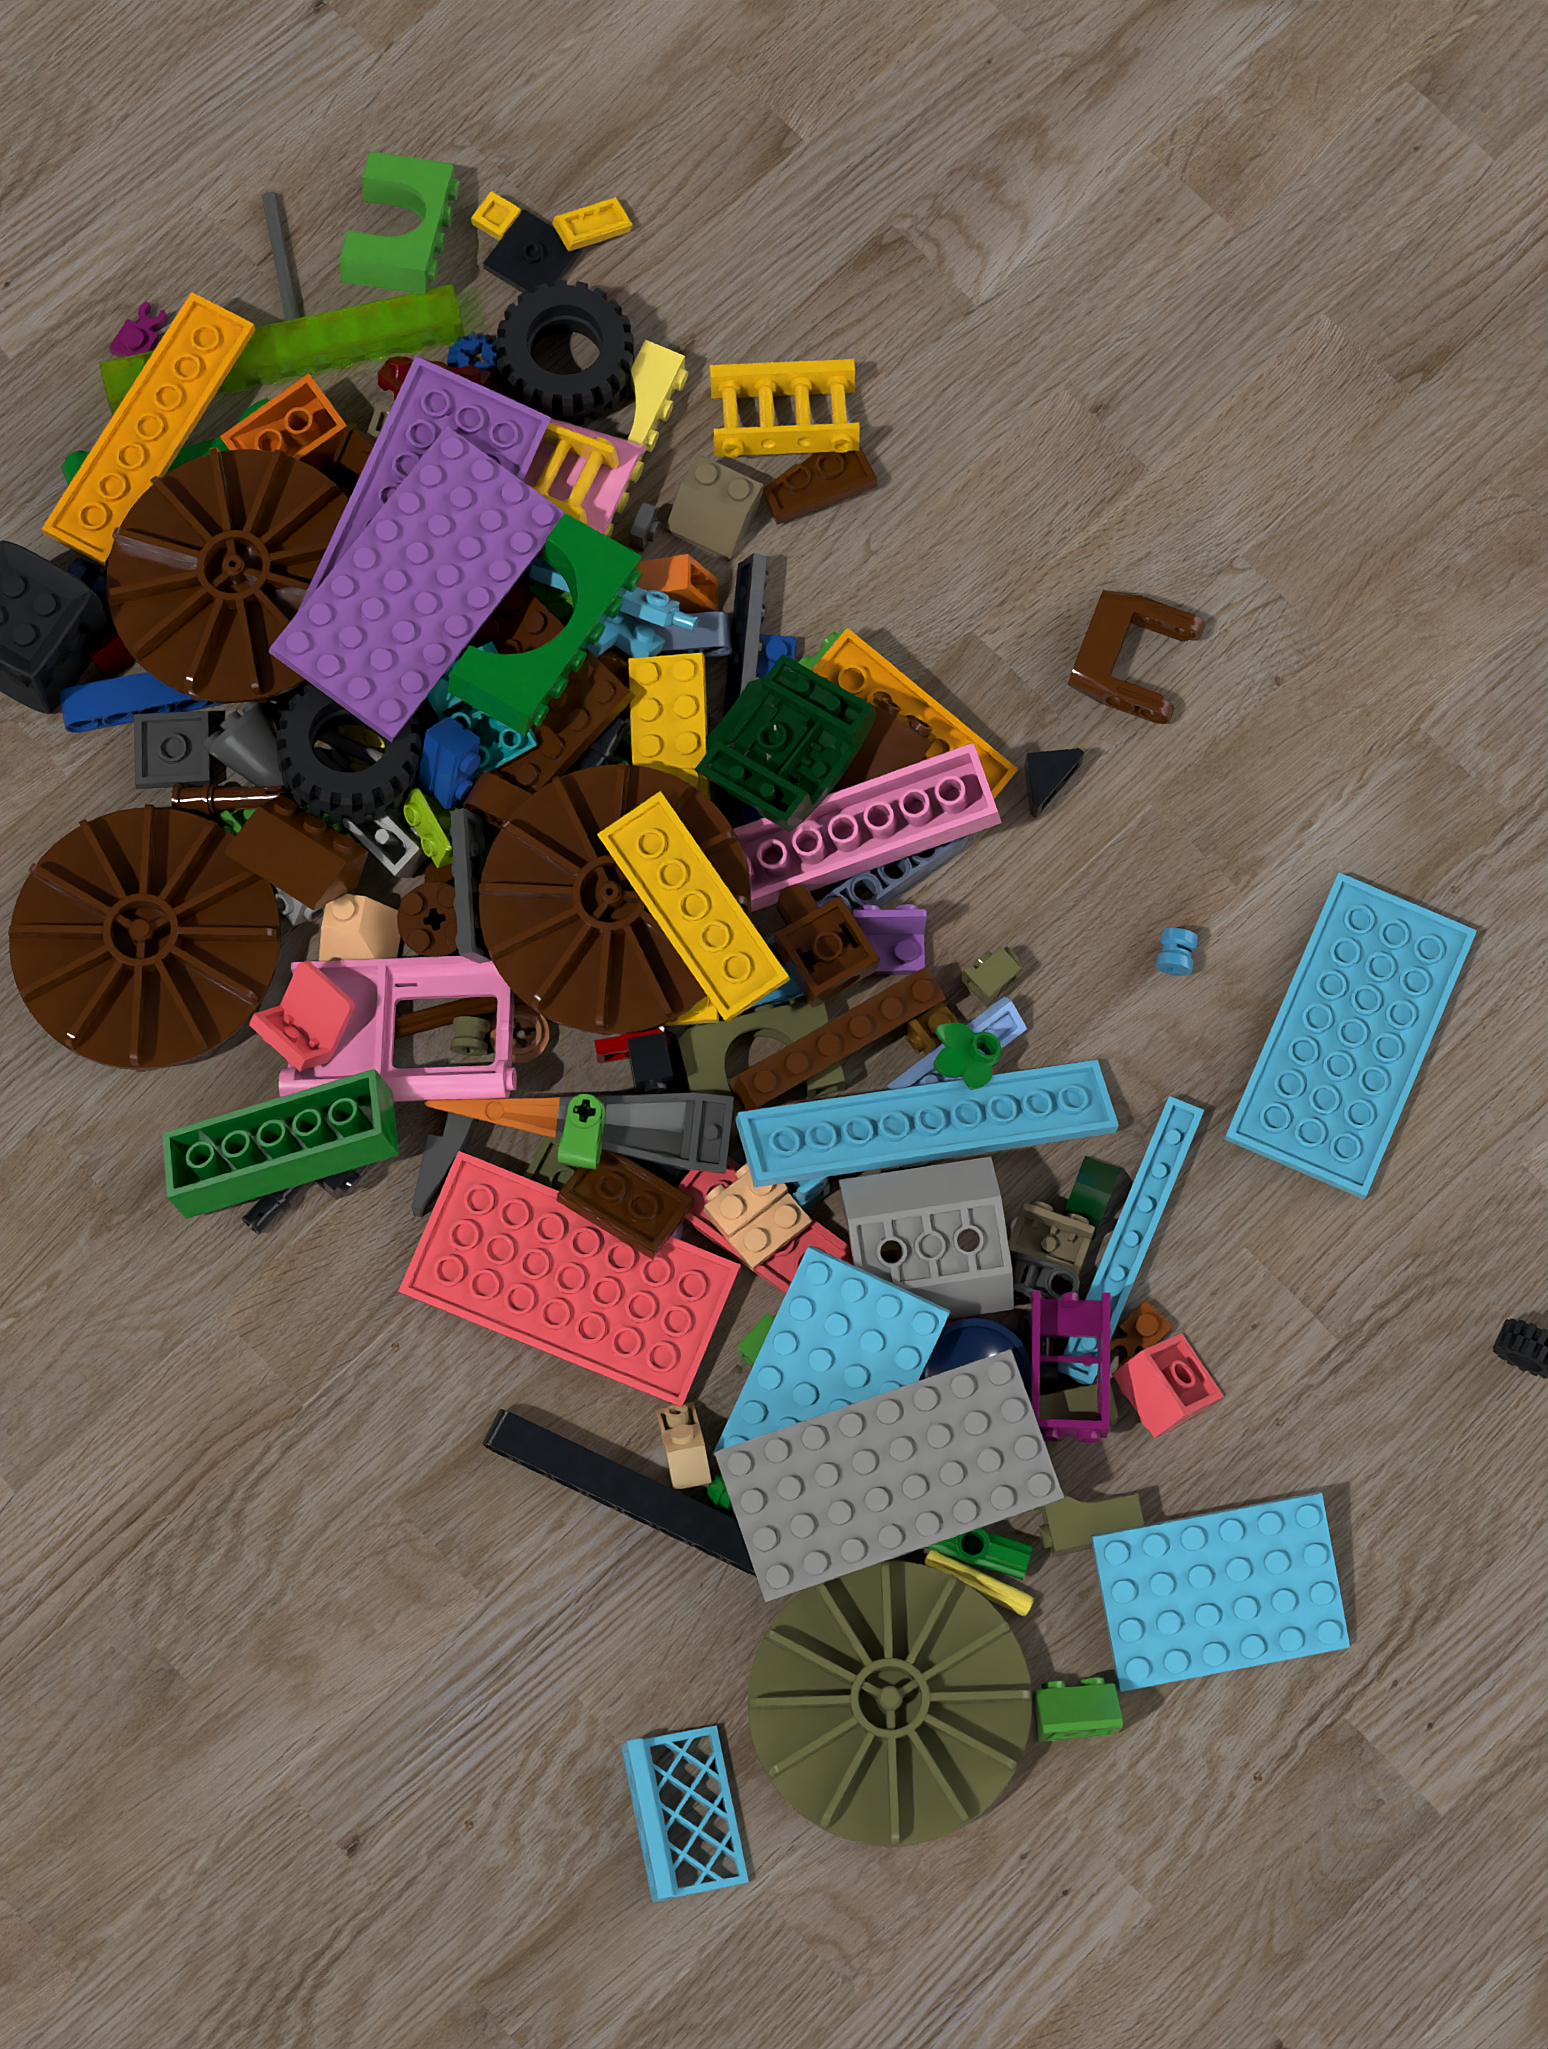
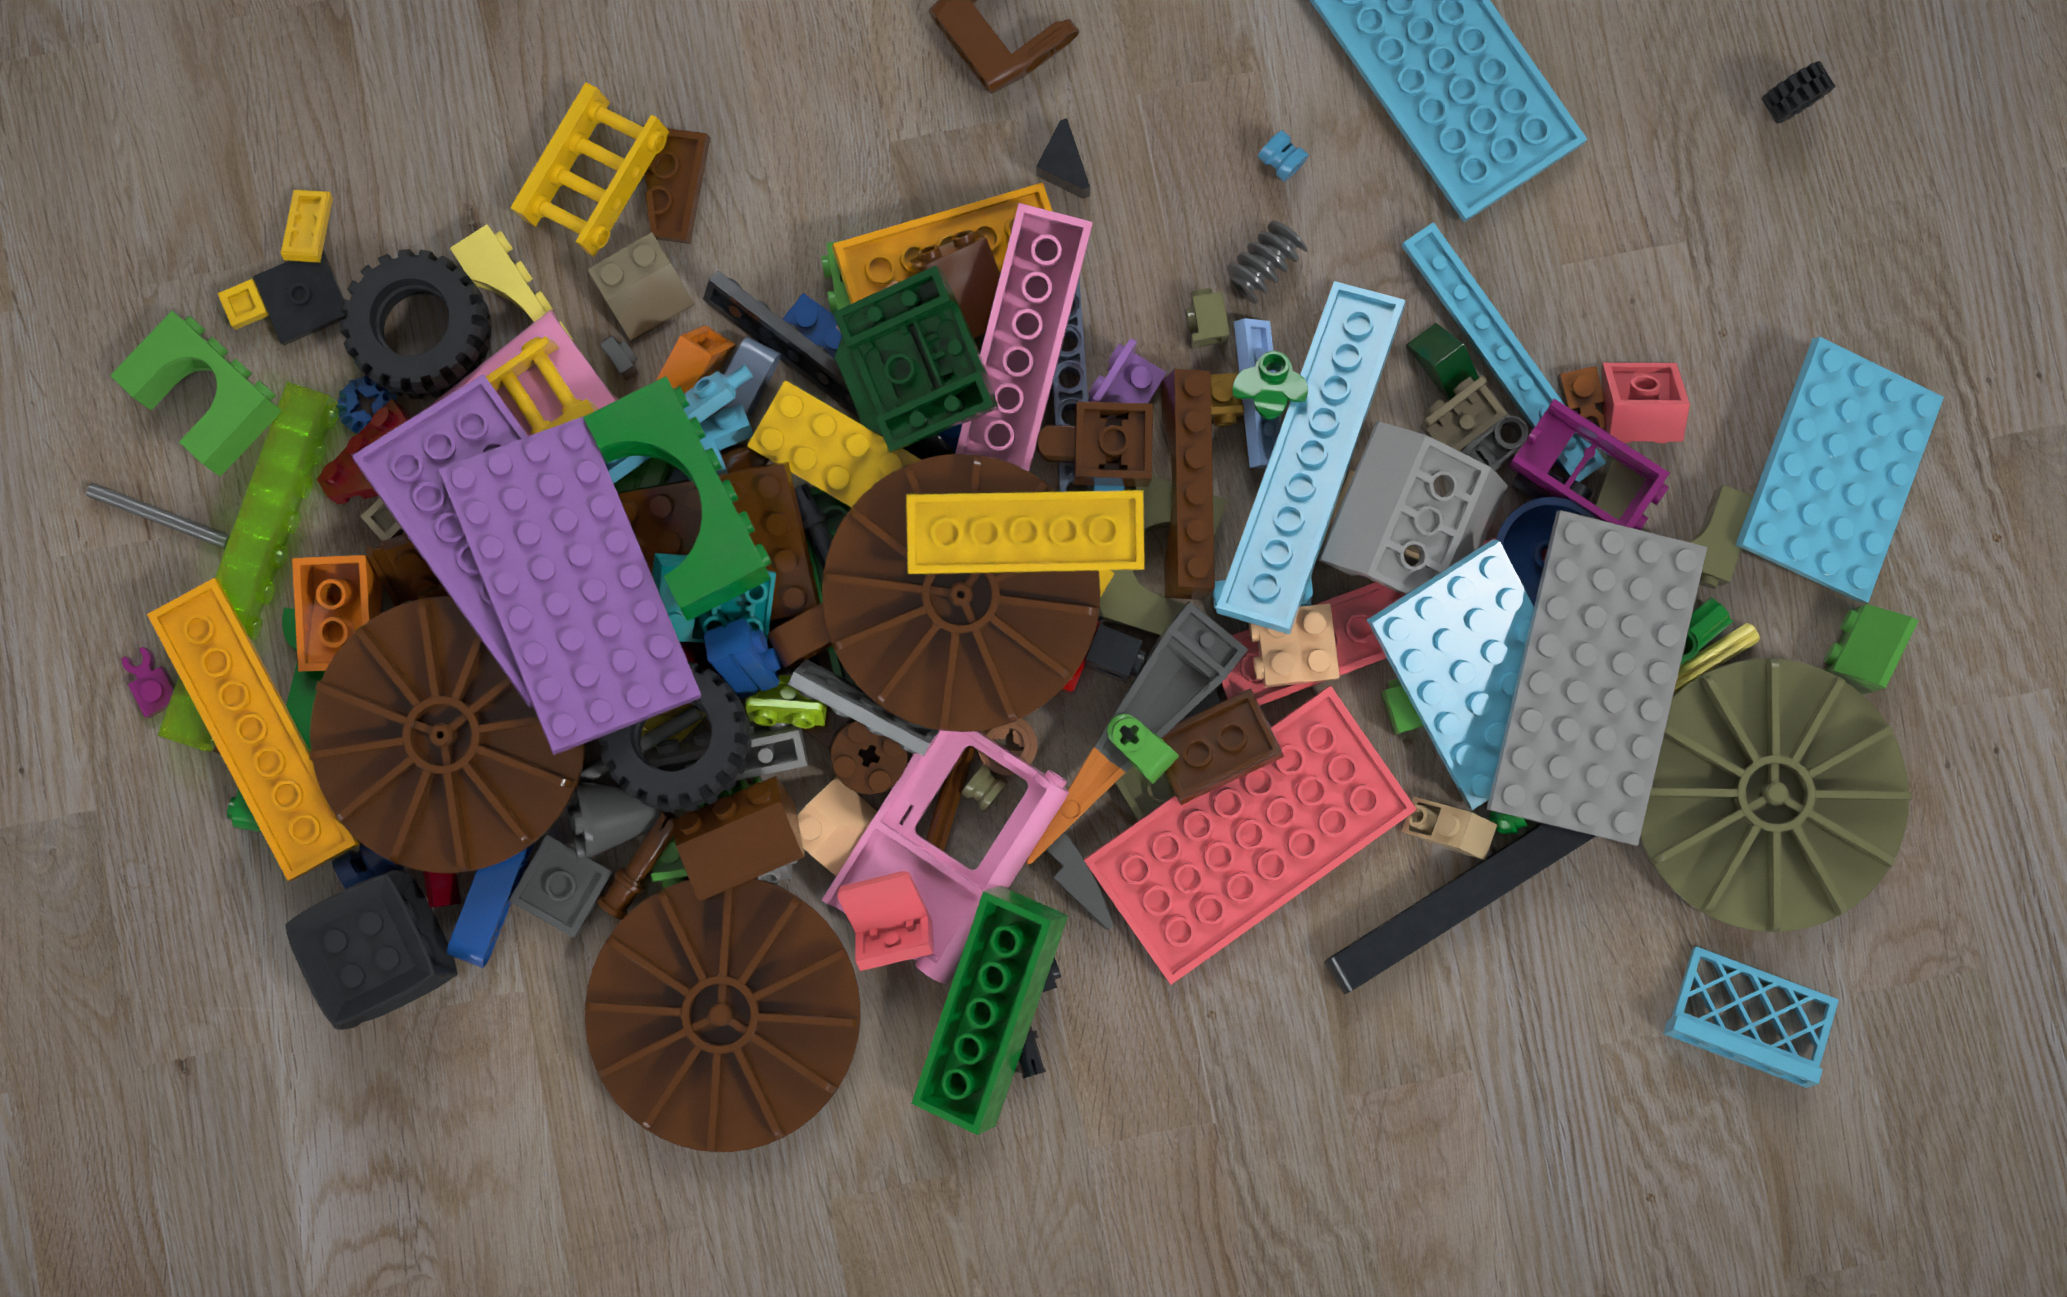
camera: 55 degrees left, 10 degrees up
(1074, 990) = (1264, 259): none -> dark grey piece

